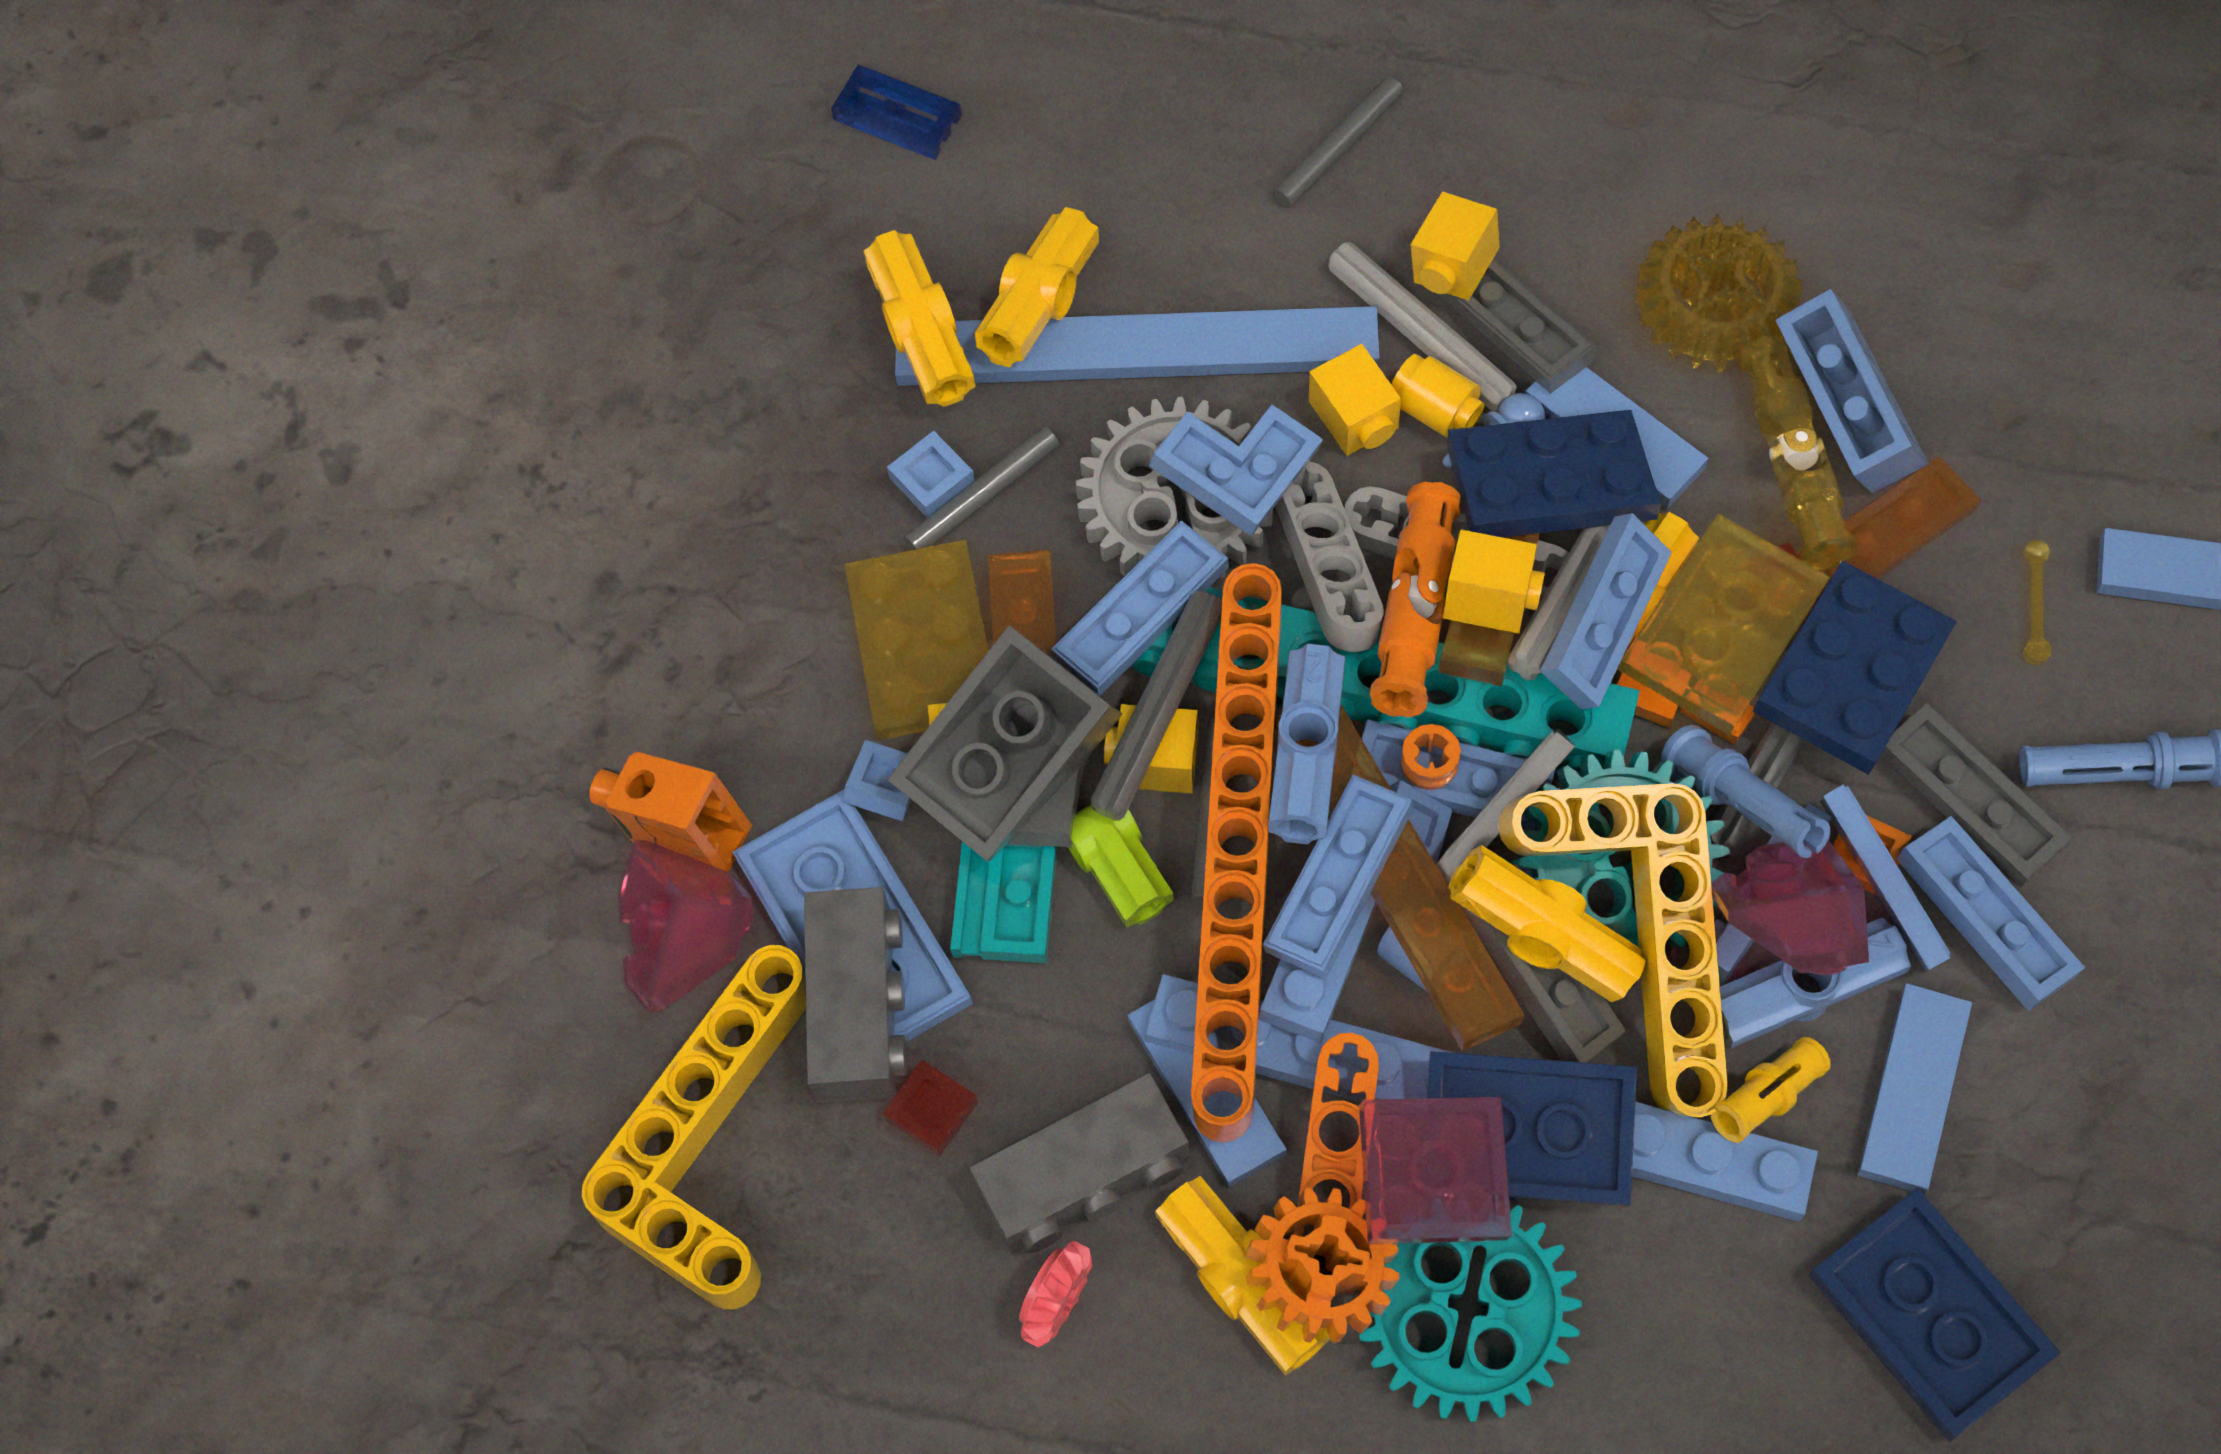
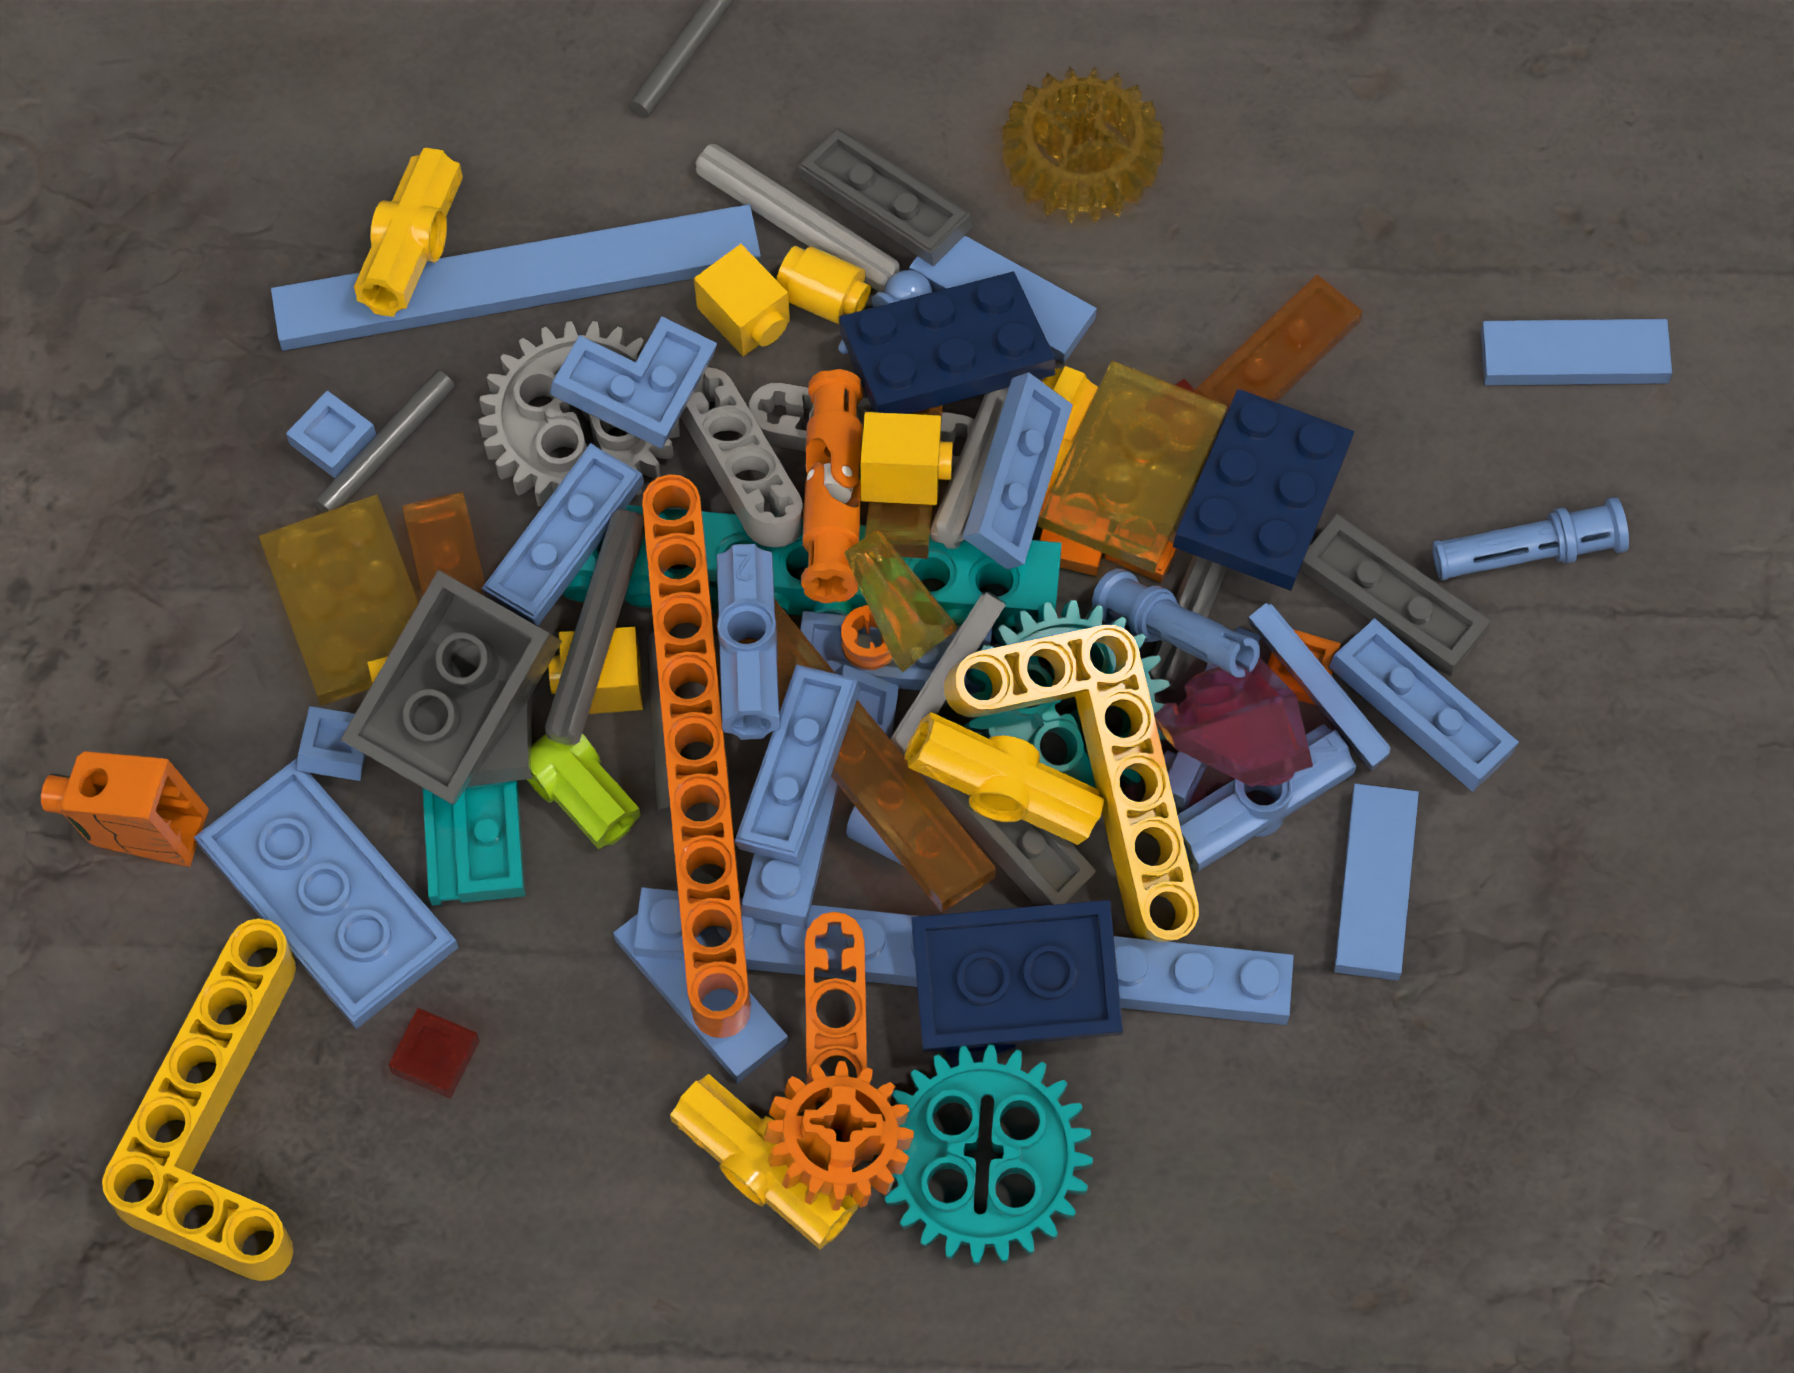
camera: 15 degrees left, 0 degrees up
(681, 922) = (154, 912): clear pink slope -> none
(852, 995) = (340, 955): flat silver brick -> none
(891, 119) = (230, 82): clear blue tile -> none
(919, 318) = (294, 280): yellow piece -> none
(1054, 1293) = (585, 1207): coral gear -> none
(1082, 1165) = (591, 1083): flat silver brick -> none
(1434, 1170) = (932, 1027): clear pink plate -> none
(1455, 246) = (818, 134): yellow brick -> none
(1465, 725) = (899, 602): none -> clear yellow slope
(1745, 1108) = (1219, 924): yellow pin -> none
(1785, 420) = (1164, 261): clear yellow piece -> none
(1851, 392) = (1224, 223): medium blue brick -> none
(1934, 1314) = (1422, 1088): dark blue plate -> none
(2037, 649) = (1436, 447): clear yellow hinge -> none

